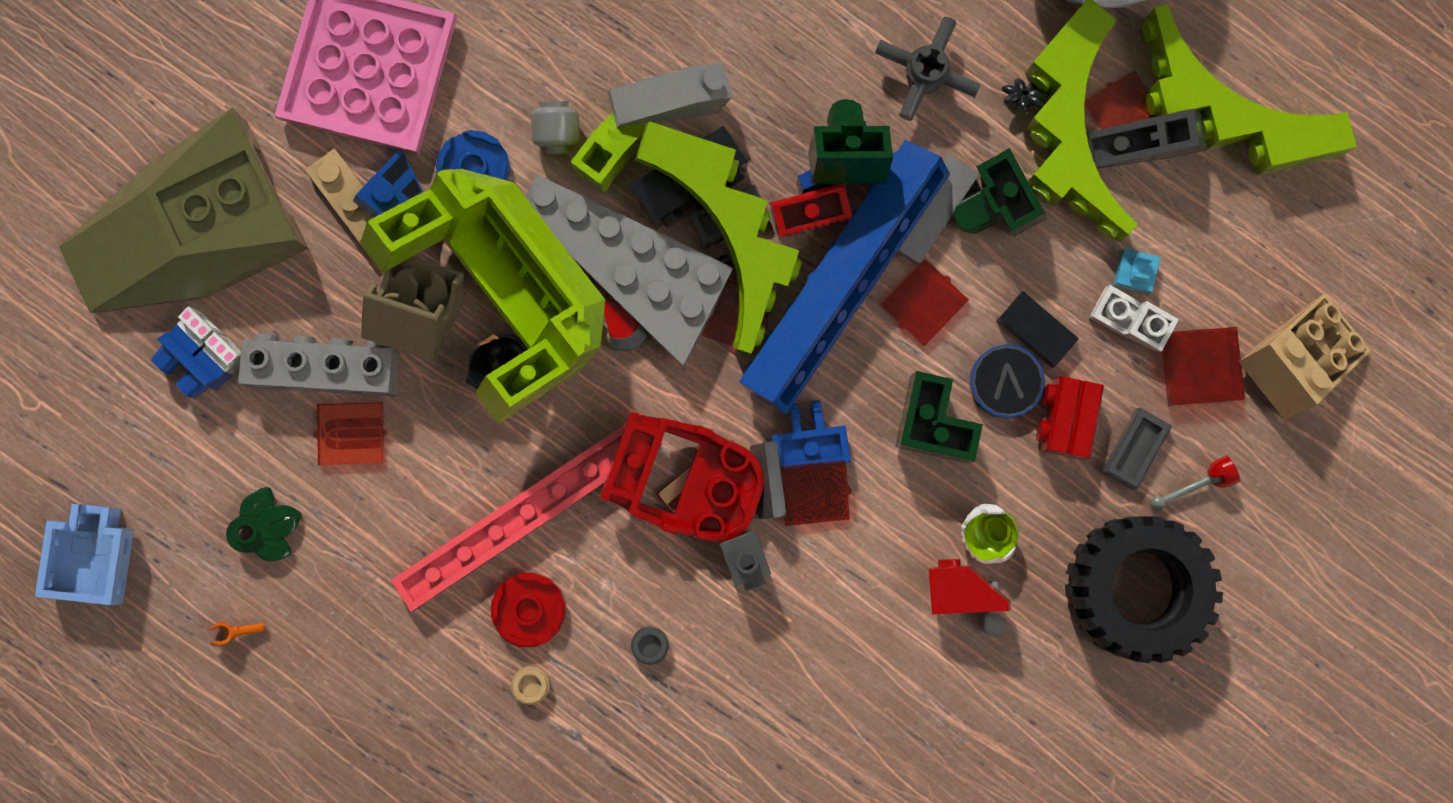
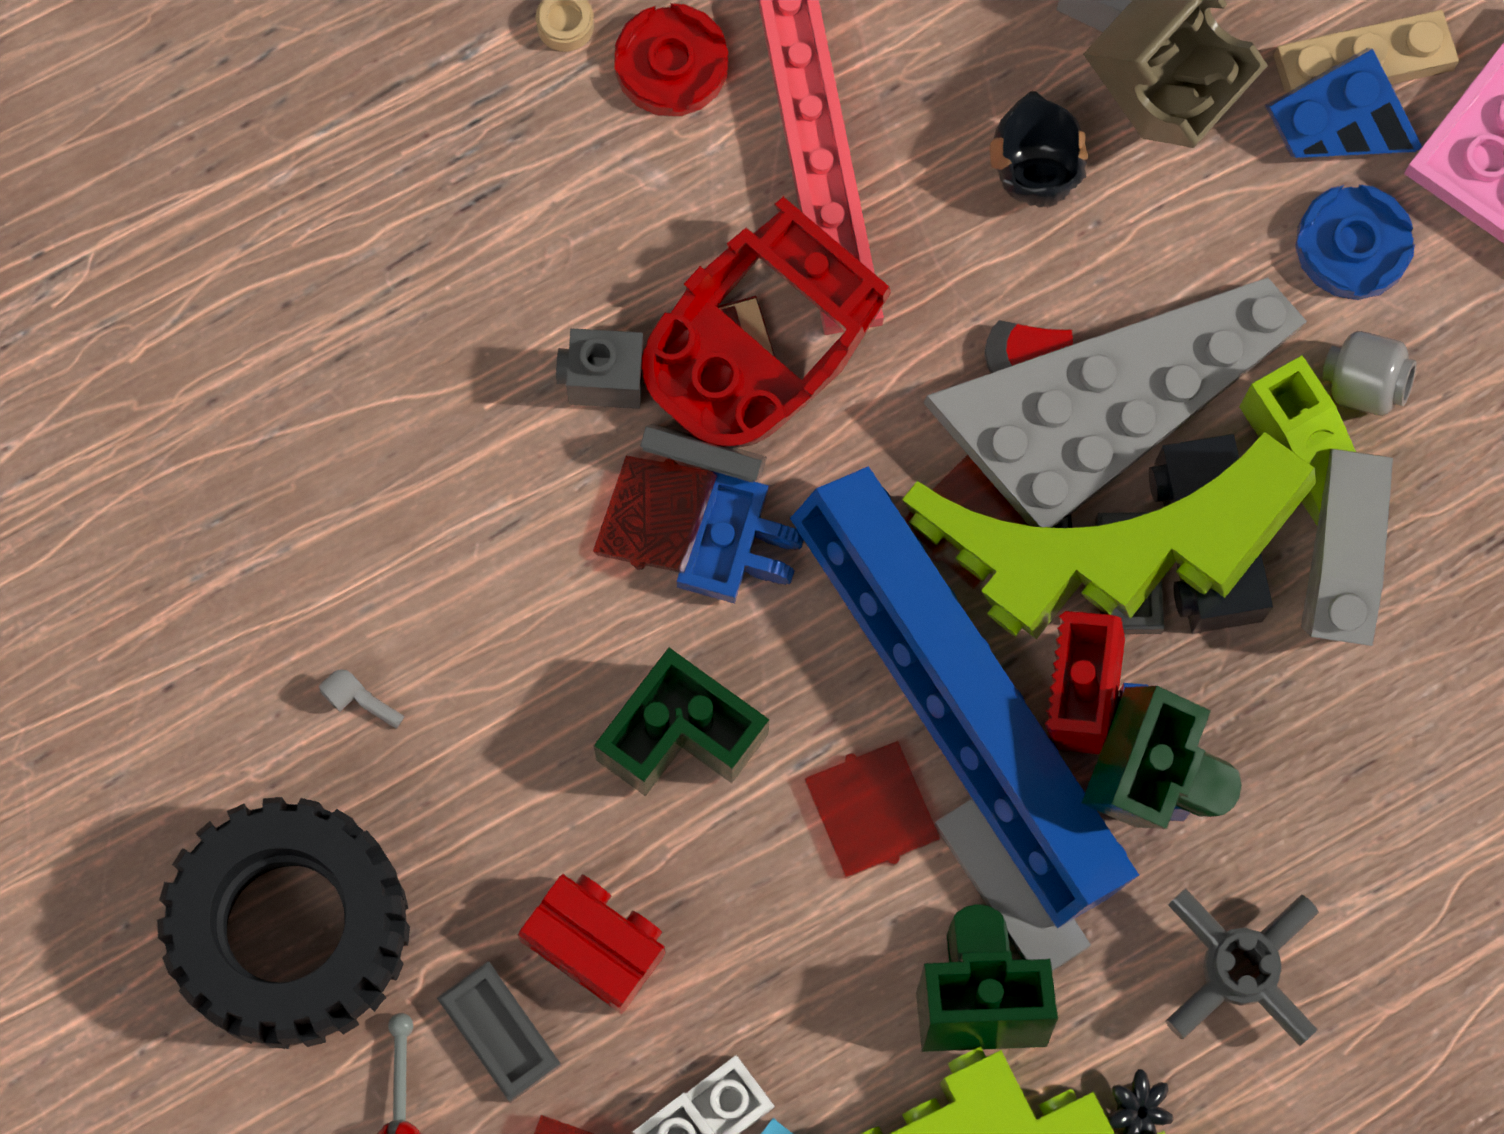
camera: 115 degrees right, 10 degrees down
(515, 265) = (1171, 224): lime wedge -> none
(650, 645) = (543, 199): dark grey tile -> none
(963, 590) = (410, 659): red slope -> none
(990, 534) = (474, 737): lime hair -> none
(1007, 381) = (694, 876): black tile -> none
(1037, 329) = (754, 962): black tile -> none

